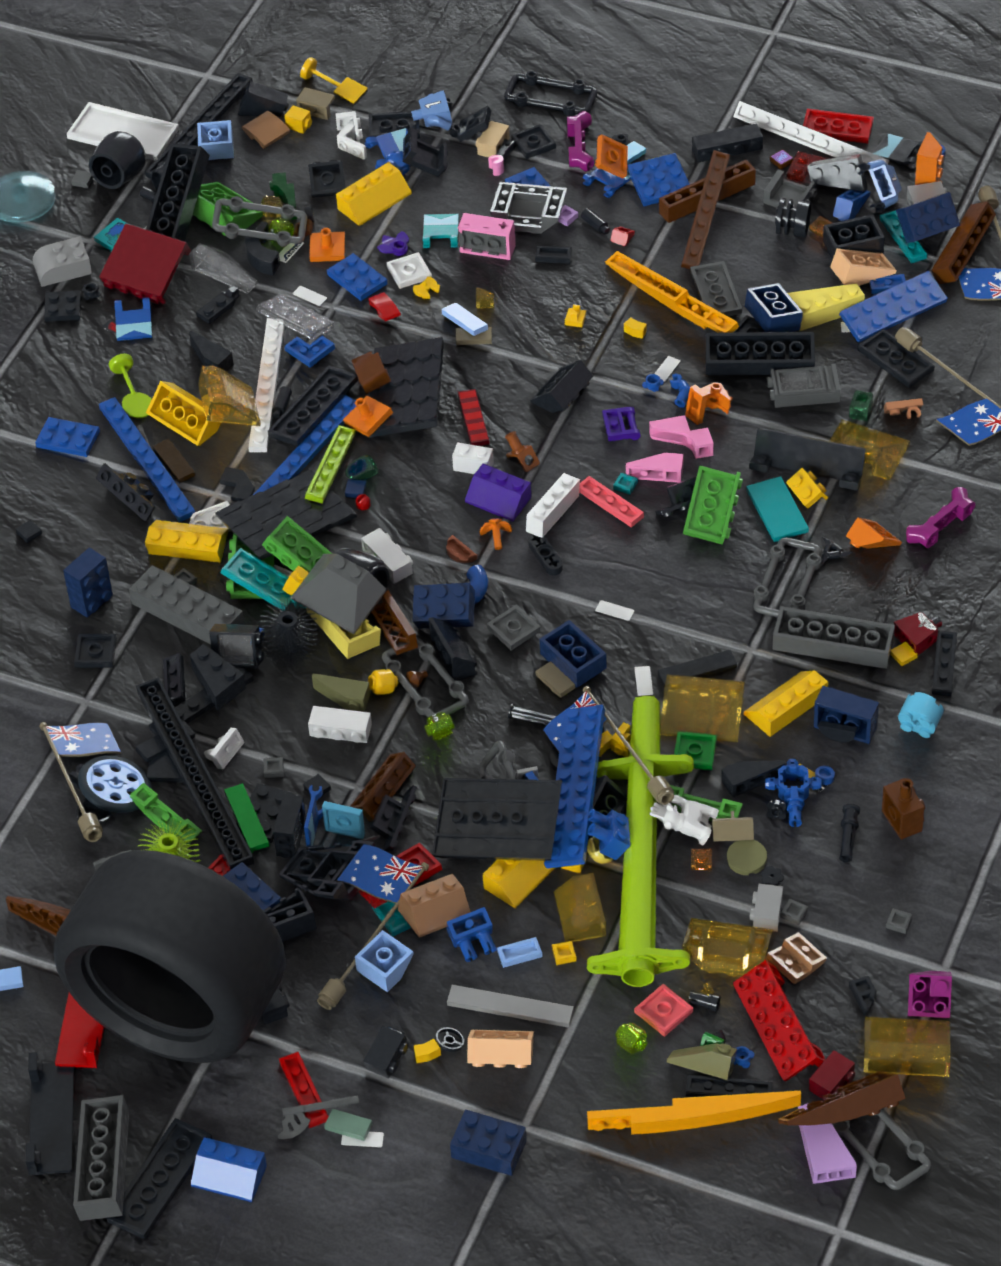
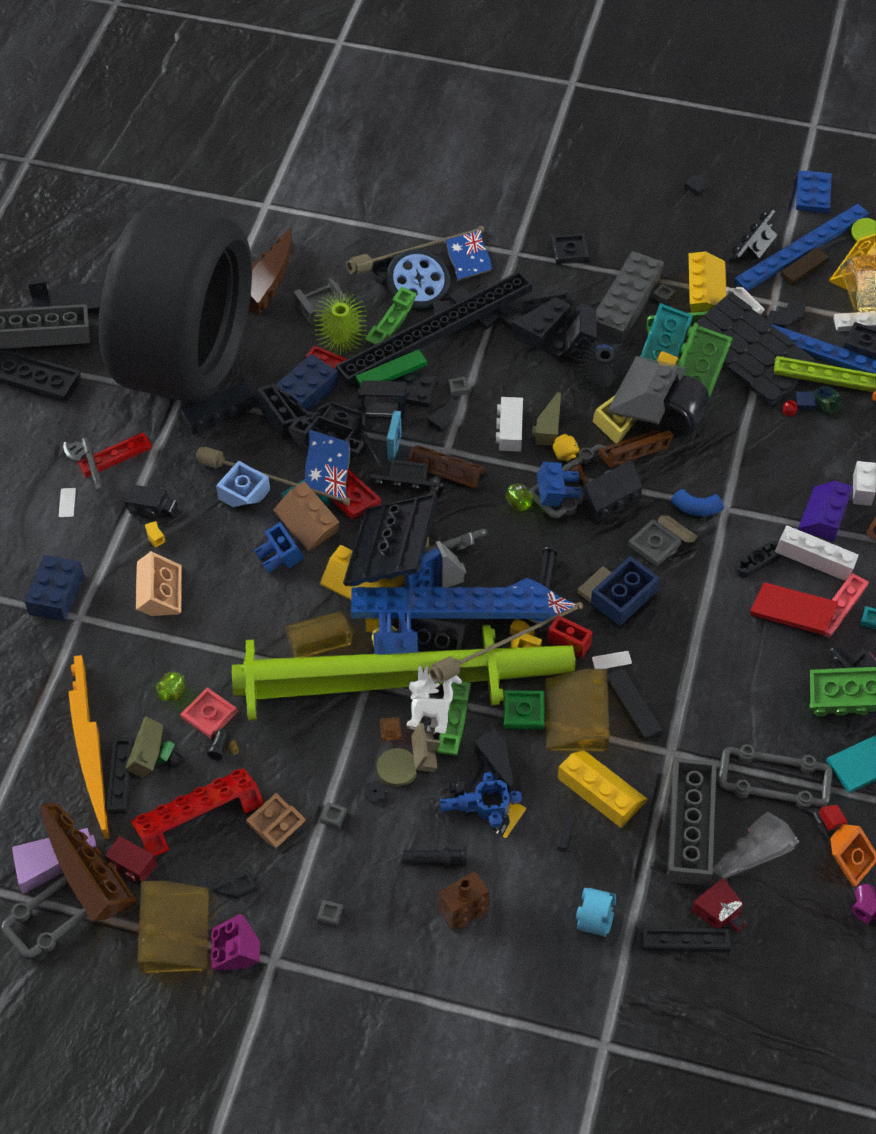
camera: 80 degrees right, 5 degrees up
(88, 582) = (630, 220): dark blue brick -> none
(225, 749) = (470, 348): white tile -> none
(228, 1169) = (32, 414): slope -> none
(313, 816) = (381, 413): blue flag -> none
(348, 1124) = (77, 489): sand green tile -> none
(383, 547) = (723, 432): white brick -> none
(436, 691) = (552, 486): none -> blue brick
(445, 602) = (660, 478): dark blue brick -> none
(446, 1045) = (167, 545): black piece -> none
(459, 552) = (746, 489): copper tile -> none
(495, 525) = (779, 512): orange plant -> none
(501, 607) = (677, 529): none -> dark tan tile
(510, 1006) = (207, 592): light grey tile -> none
(519, 952) = (268, 592): light blue tile -> none
(564, 952) = (270, 626): yellow tile -> none
(610, 533) = (794, 608): none -> red tile
(614, 610) = (699, 626): white sticker -> none
(620, 701) = (567, 633): none -> red brick
(726, 946) = (283, 753): clear yellow slope -> none
(746, 1053) = (155, 777): blue plate -> none
(767, 906) = (331, 788): light grey brick -> none
(826, 774) = (510, 830): blue tile -> none
(837, 542) = (832, 817): none -> red slope
(848, 710) = (584, 838): dark blue brick -> none
(858, 595) = (766, 840): none -> clear wedge
(903, 654) = (689, 895): yellow tile -> none

